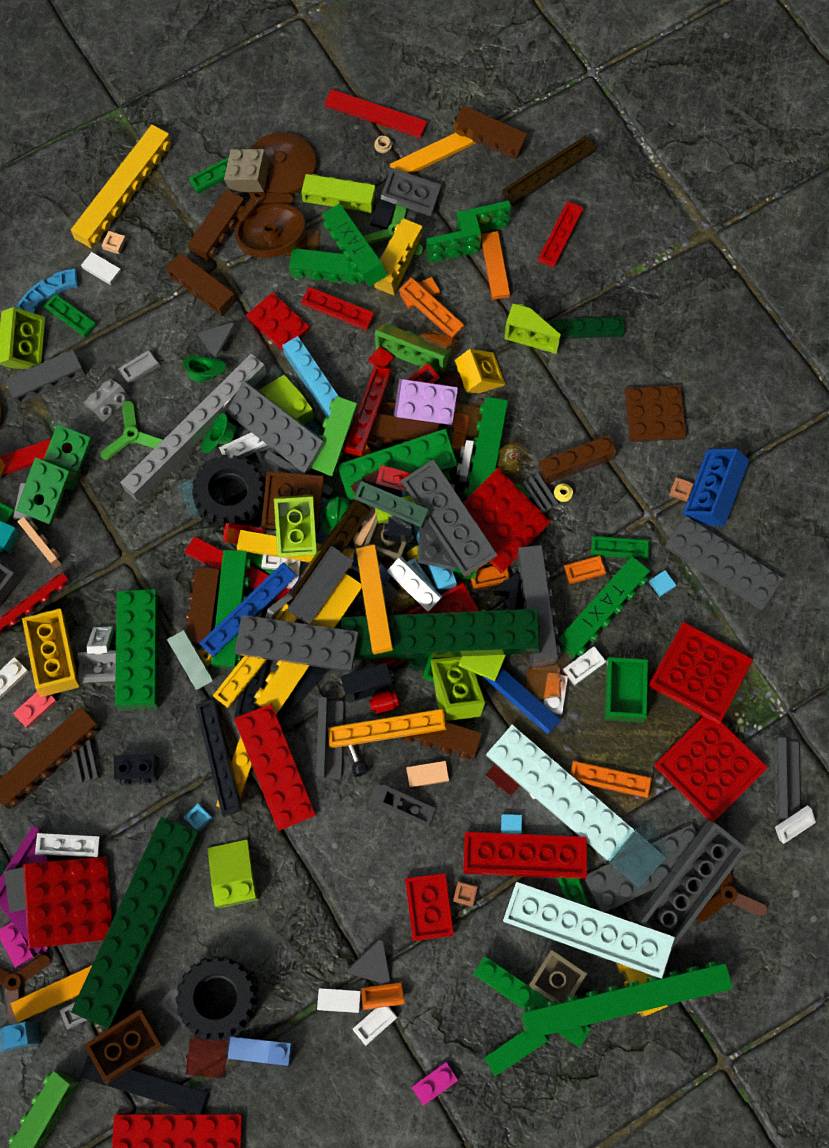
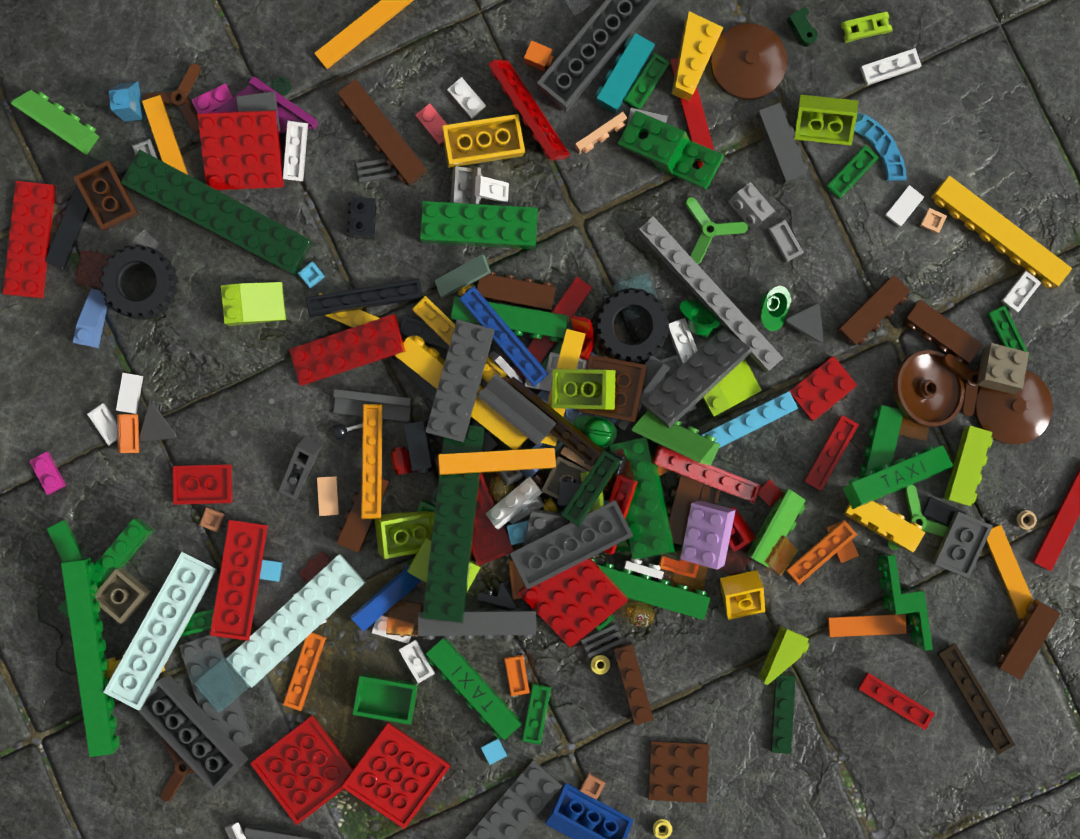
camera: 90 degrees right, 15 degrees up
(175, 165) = (1021, 292): none -> white plate
(711, 417) = (662, 834): none -> light yellow plate

